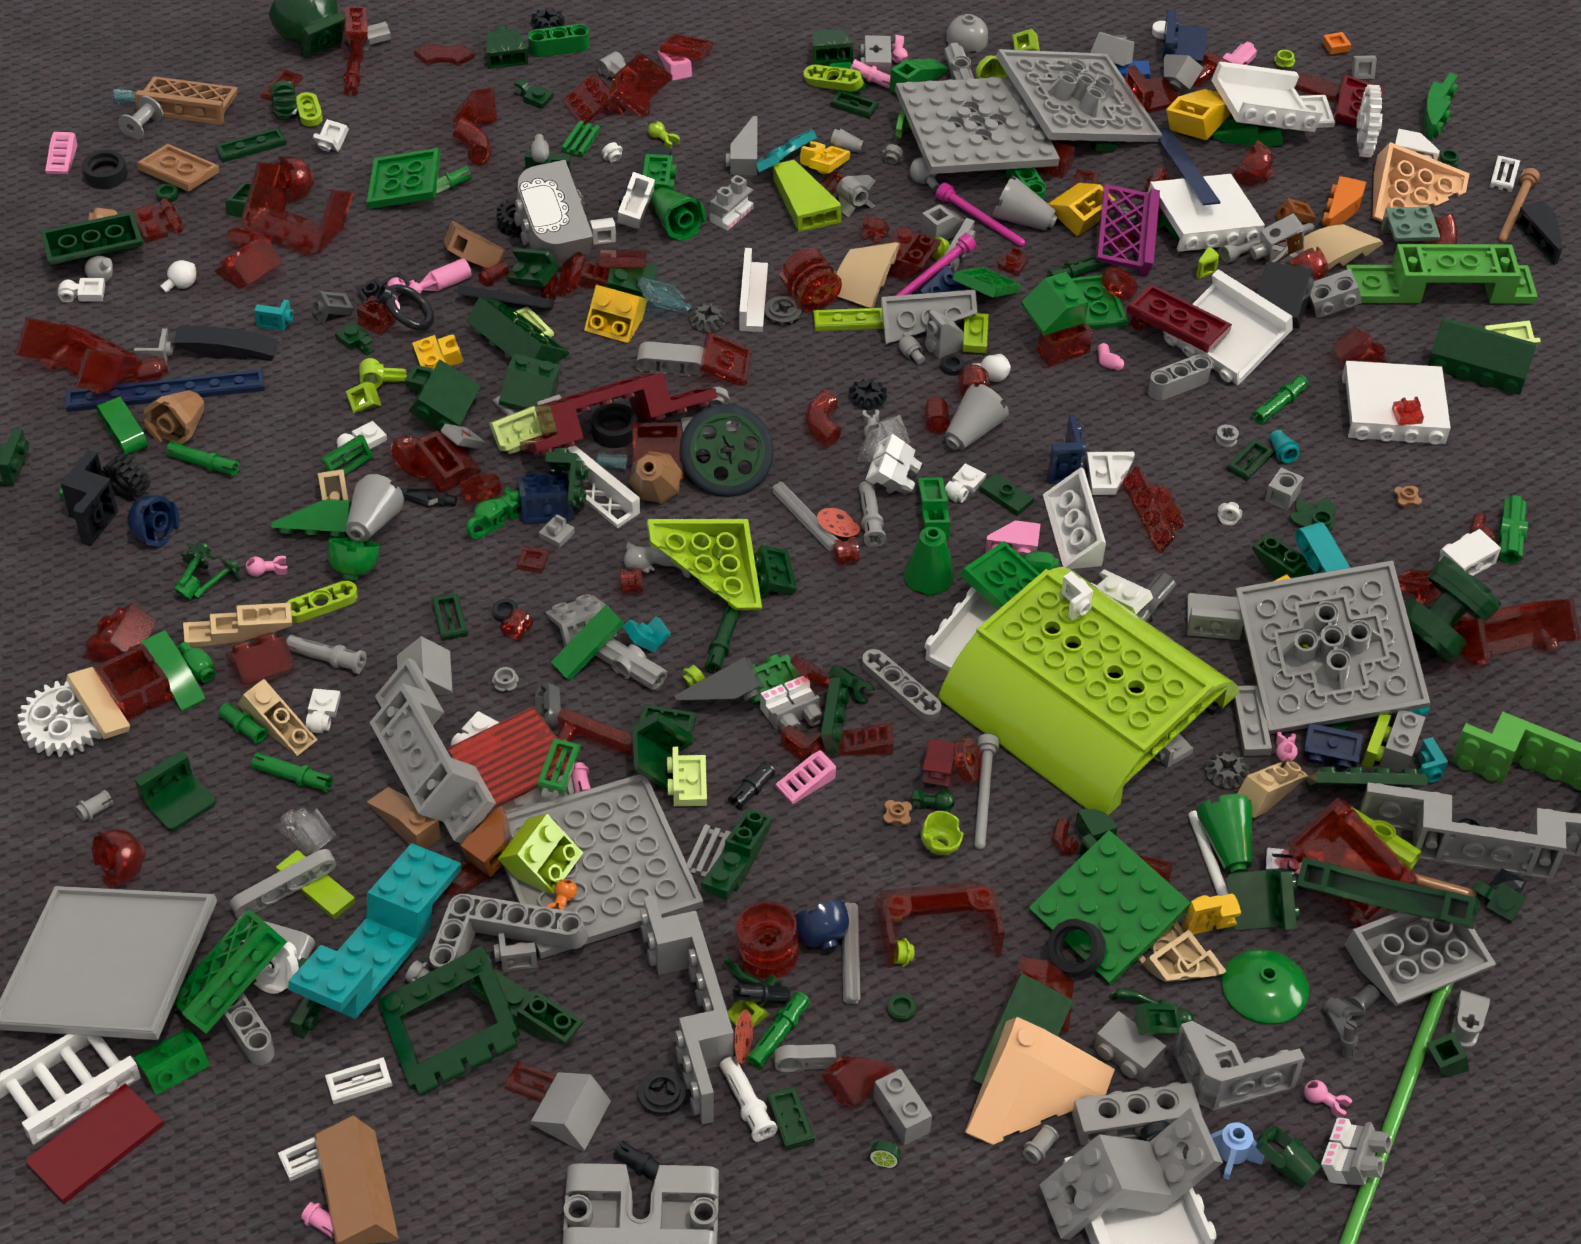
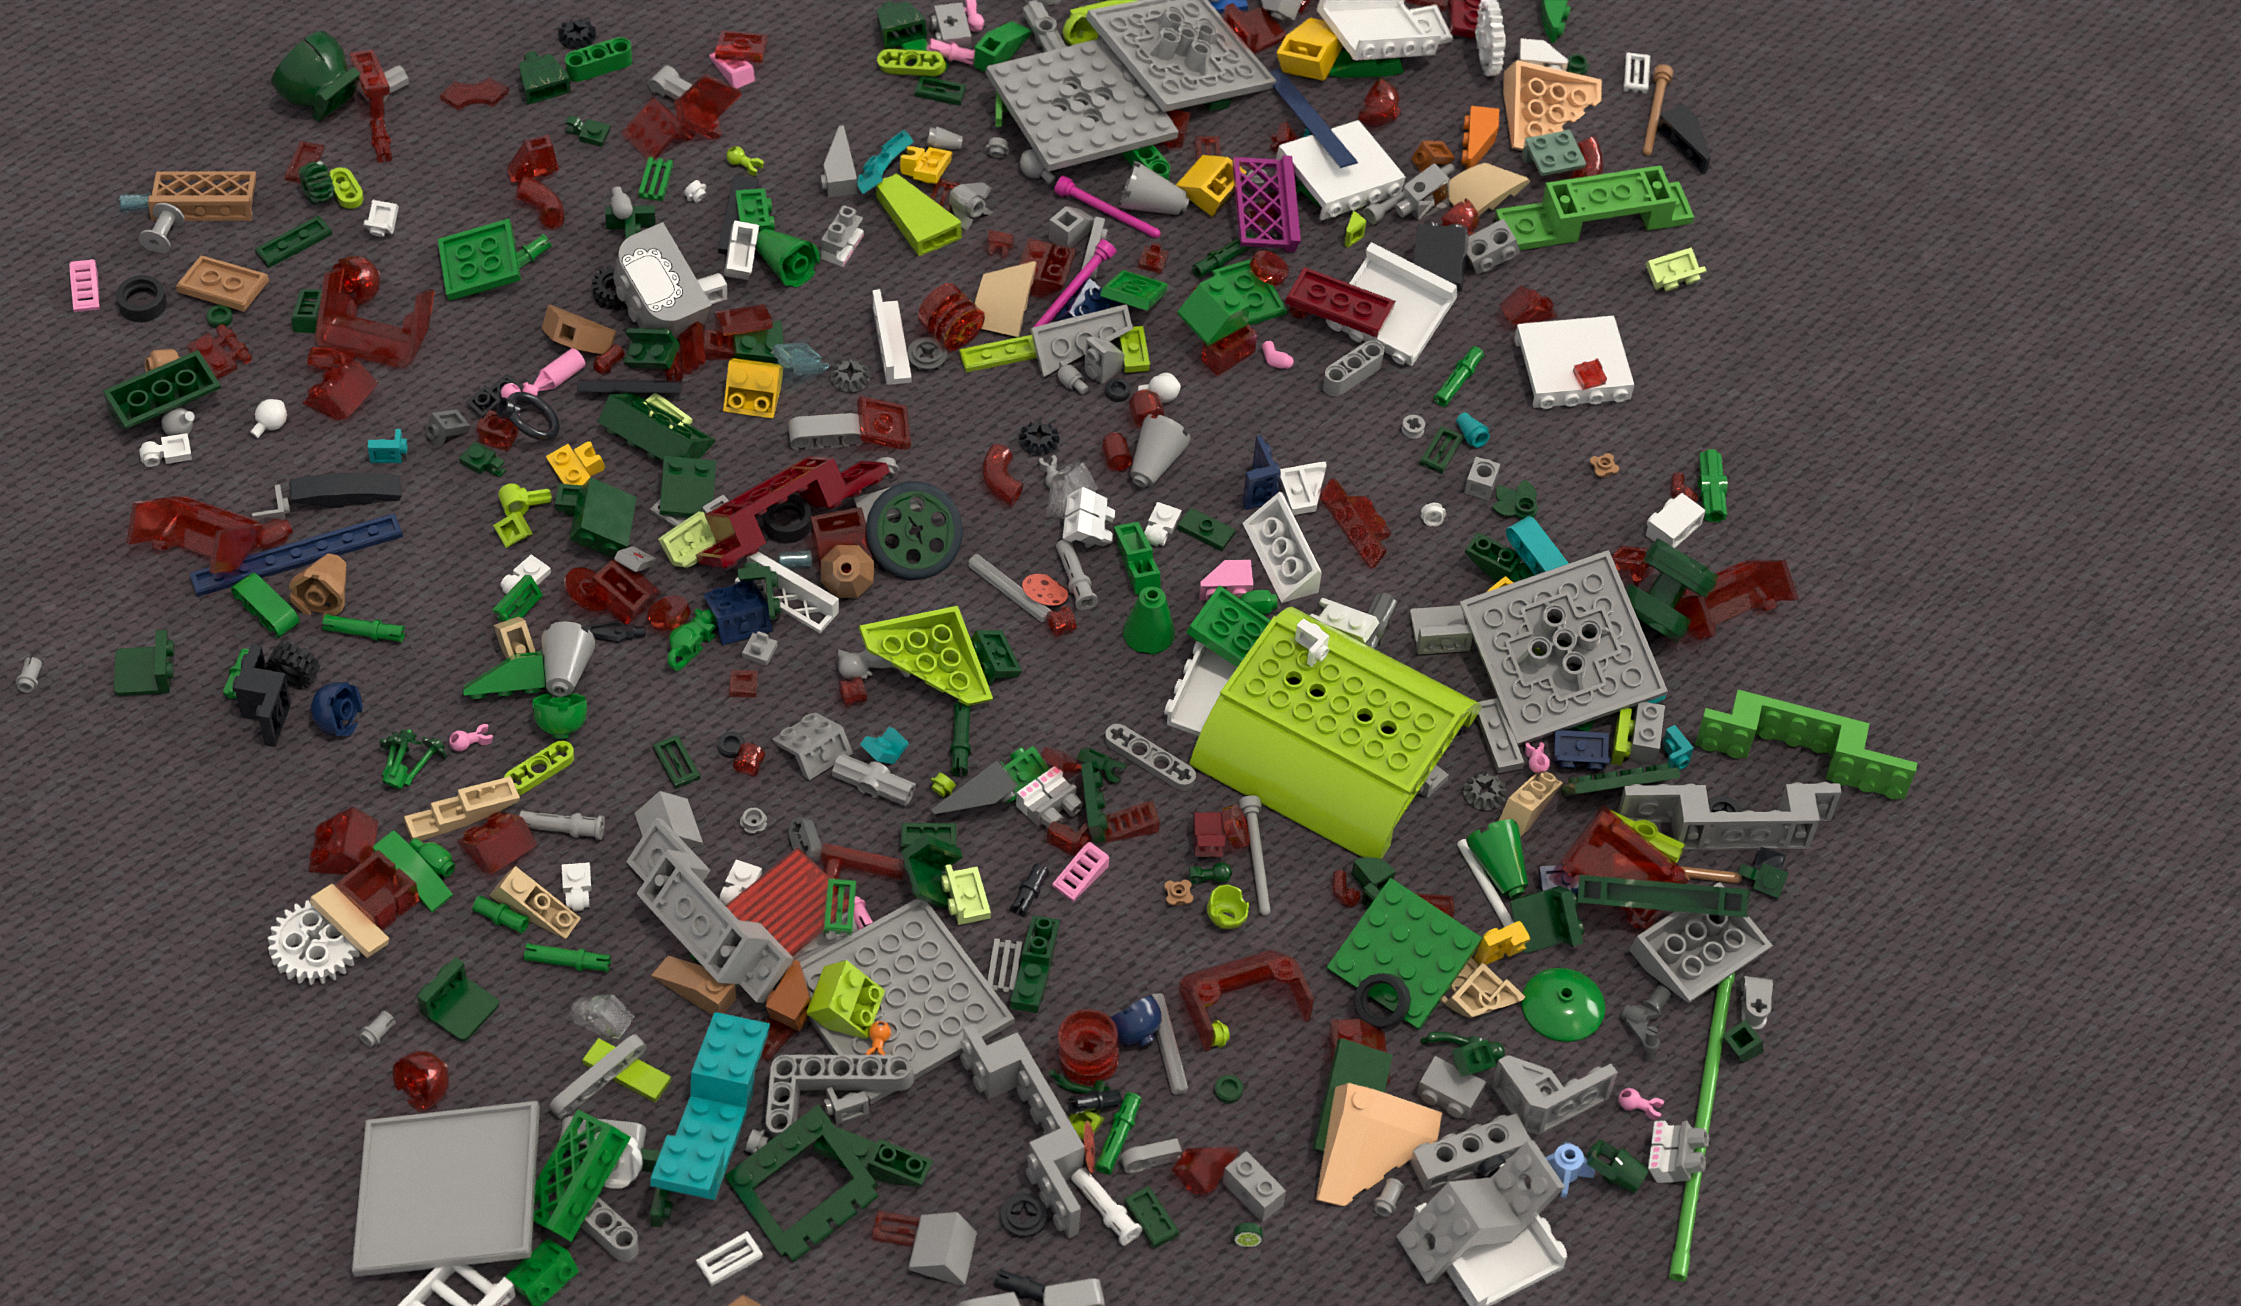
camera: 15 degrees left, 5 degrees up
(587, 642) = (829, 767): green tile -> none
(941, 250) = (1079, 256): lime plate -> none
(1482, 355) = (1650, 297): dark green slope -> none

